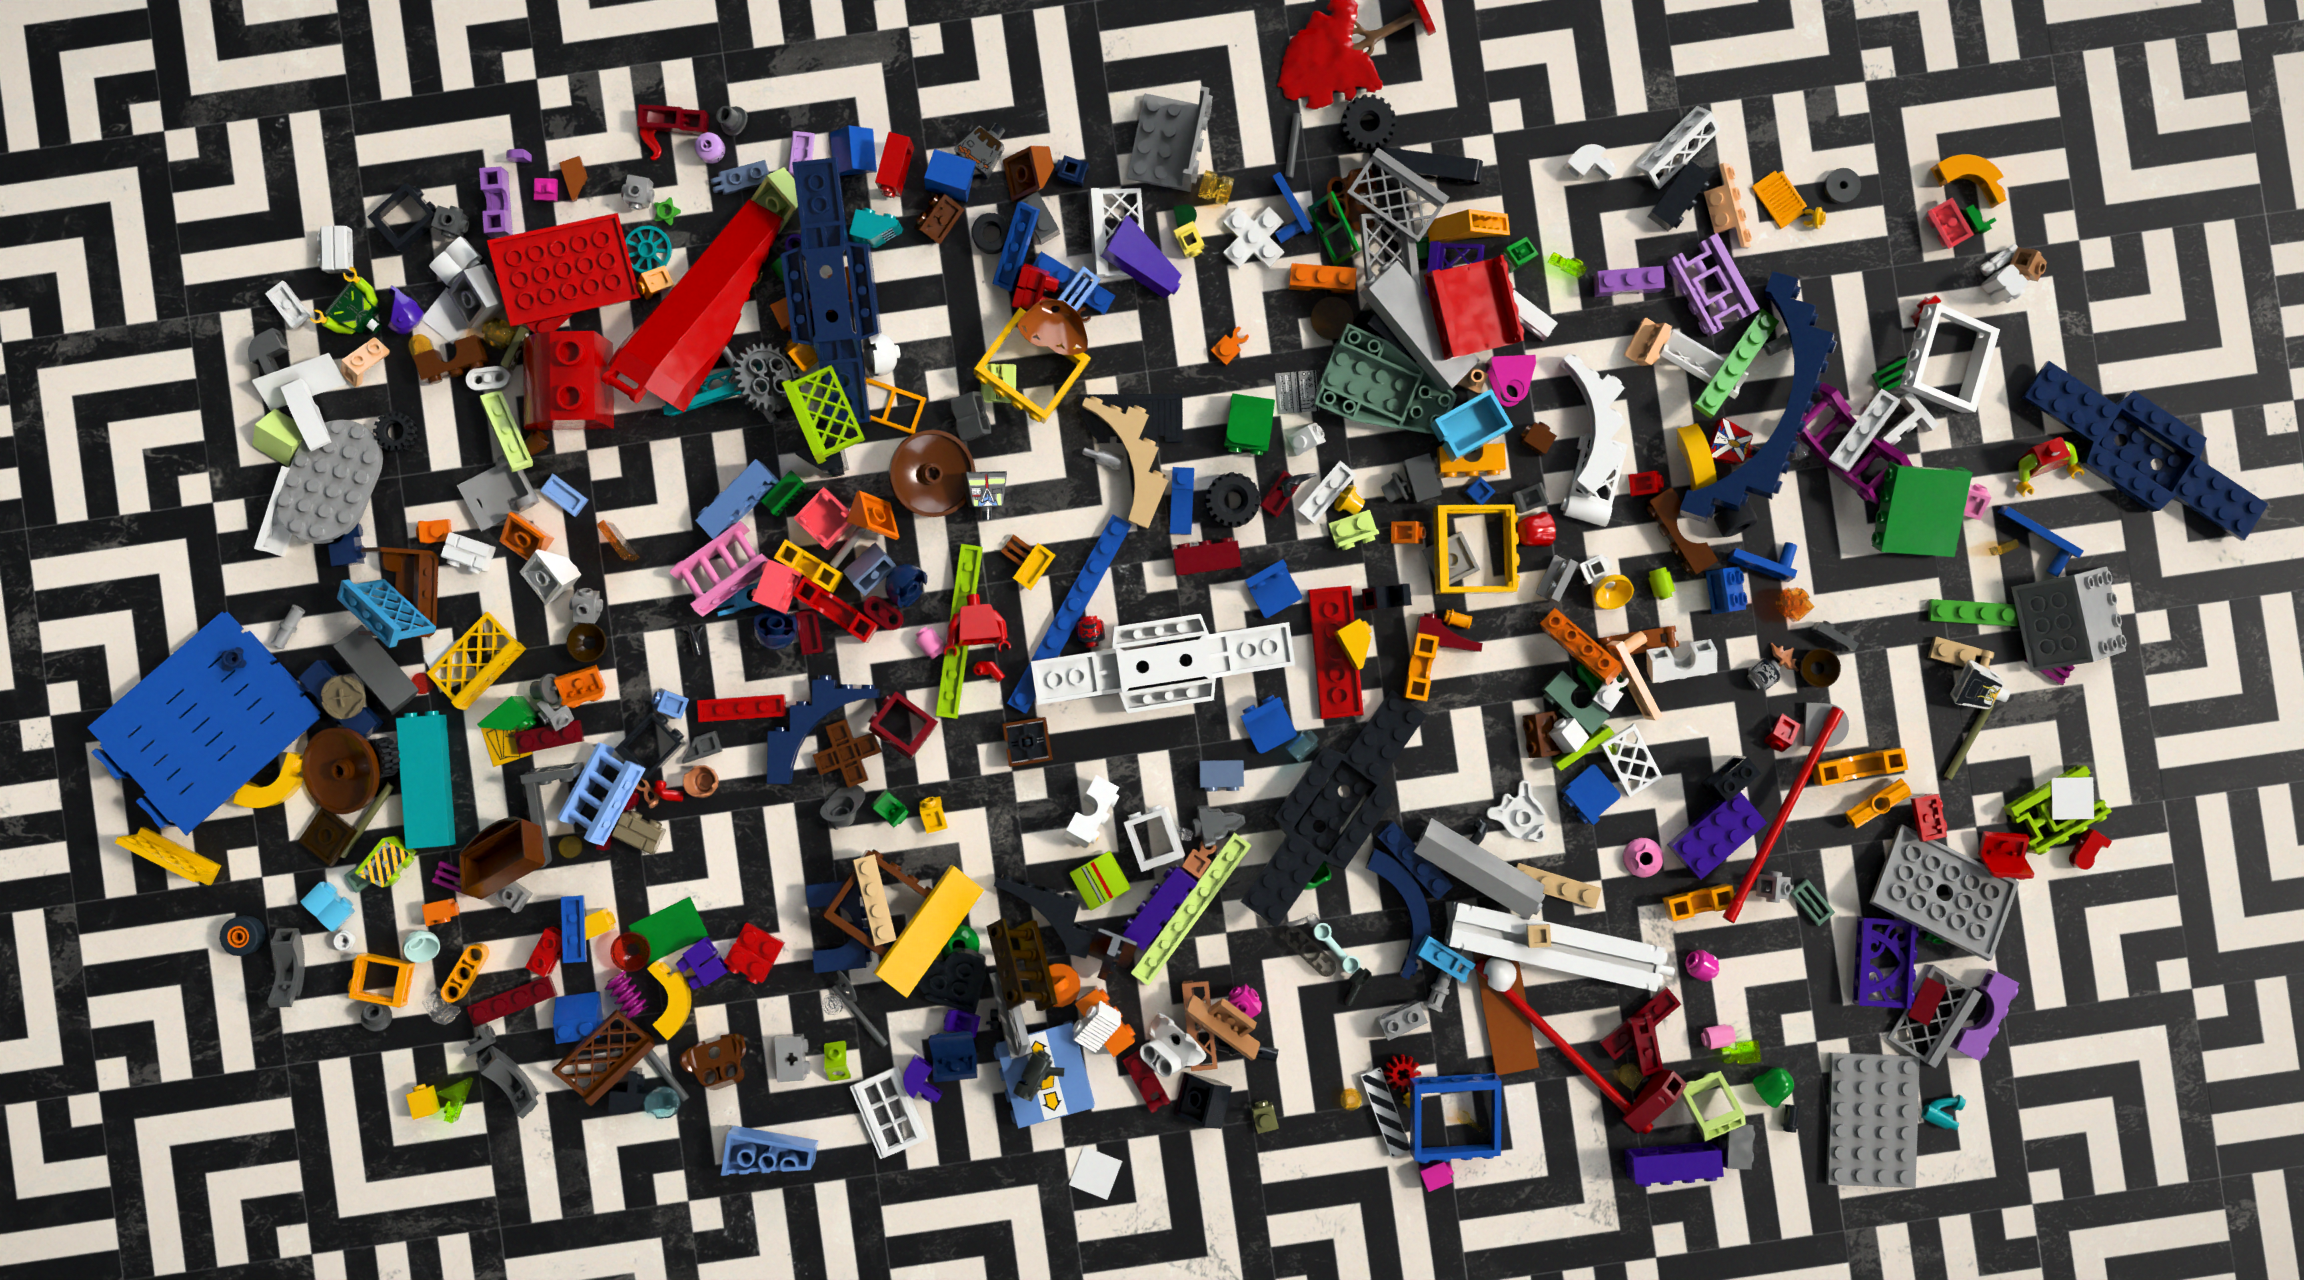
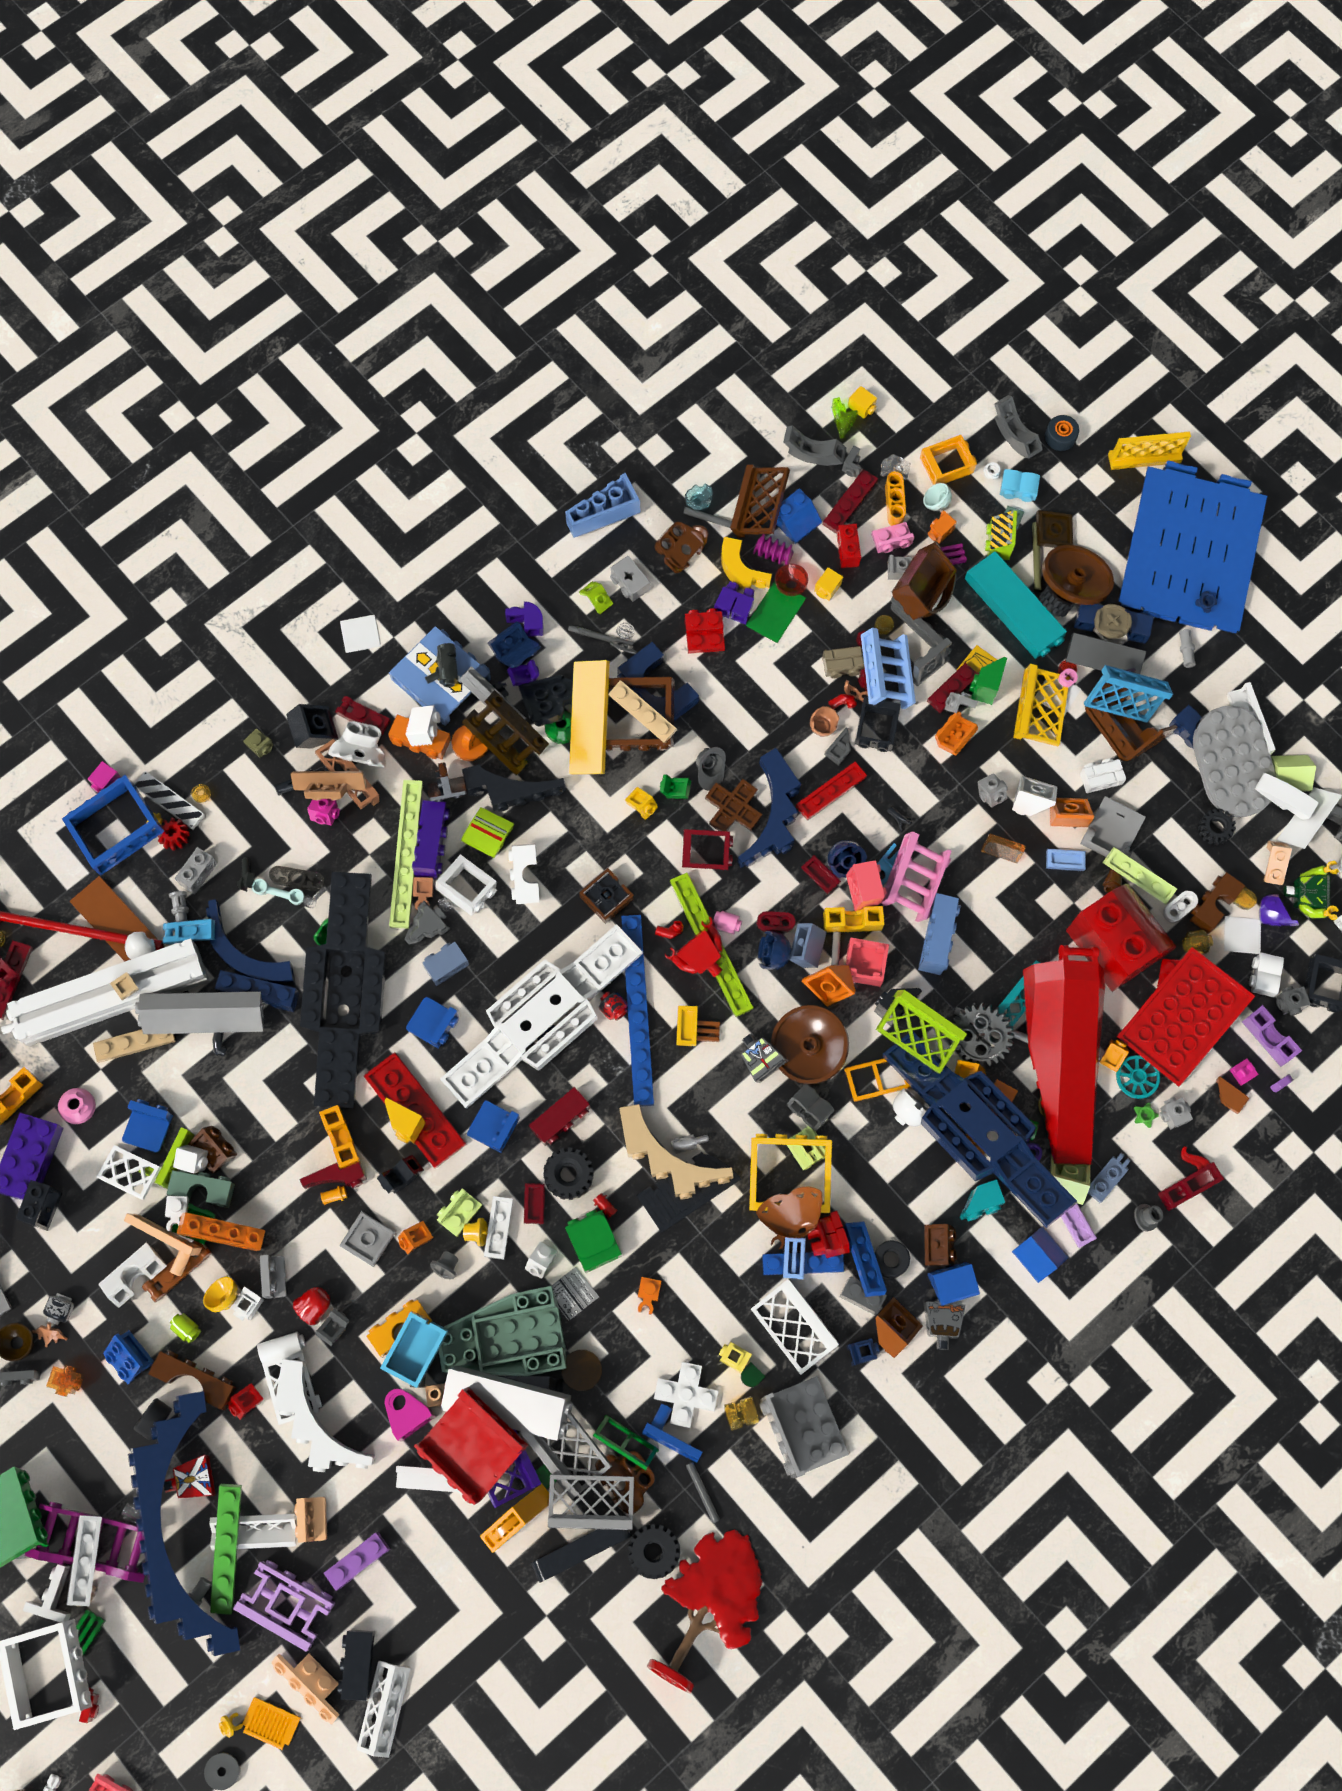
camera: 140 degrees right, 15 degrees down
(285, 786) = (1117, 527): yellow arch -> none
(376, 1017) = (933, 434): dark grey piece -> none
(422, 672) = (1071, 681): none -> bright pink bush
(433, 531) = (1138, 775): orange bracket -> none
(476, 296) = (1233, 956): light grey brick -> none
(496, 933) = (892, 537): none -> bright pink bracket
(515, 349) = (1177, 937): olive tile -> none
(545, 689) = (979, 716): dark grey piece -> none
(573, 929) = (841, 567): blue piece -> none
(576, 639) = (976, 758): dark brown piece -> none
(628, 1100) = (723, 487): black brick -> none
(669, 703) = (885, 761): medium blue bracket -> none
(710, 147) = (1143, 1186): lavender head -> none
(784, 493) = (909, 962): green panel -> none
(836, 609) = (795, 901): red arch -> none
(889, 1112) = (536, 584): white piece -> none
(894, 165) = (1001, 1260): red window -> none
(1141, 259) = (763, 1314): dark purple slope -> none
(1182, 500) = (607, 1148): blue slope -> none
(1218, 451) = (604, 1205): none -> red pin
(1293, 481) = (530, 1217): black bar -> none
(1303, 745) = (396, 1022): clear light blue brick -> none
(1322, 277) = (609, 1395): orange arch -> none
(1422, 478) = (429, 1287): dark grey brick -> none
(1469, 1121) = (100, 831): clear yellow hand -> none
(1480, 491) = (377, 1308): blue tile -> none
(1510, 537) = (319, 1269): yellow window -> none
(1519, 254) = (462, 1524): green slope -> none
(1520, 815) = (193, 1077): white tile -> none
(1538, 437) = (355, 1380): reddish brown brick -> none
(1571, 266) = (411, 1544): clear neon green plate -> none
(1590, 157) = (455, 1644): white brick -> none
(1697, 456) = (214, 1448): yellow arch -> none
(1777, 570) = (90, 1403): blue piece -> none
(1782, 733) = (16, 1271): red bracket -> none
(2005, 284) = (30, 1773): white brick -> none

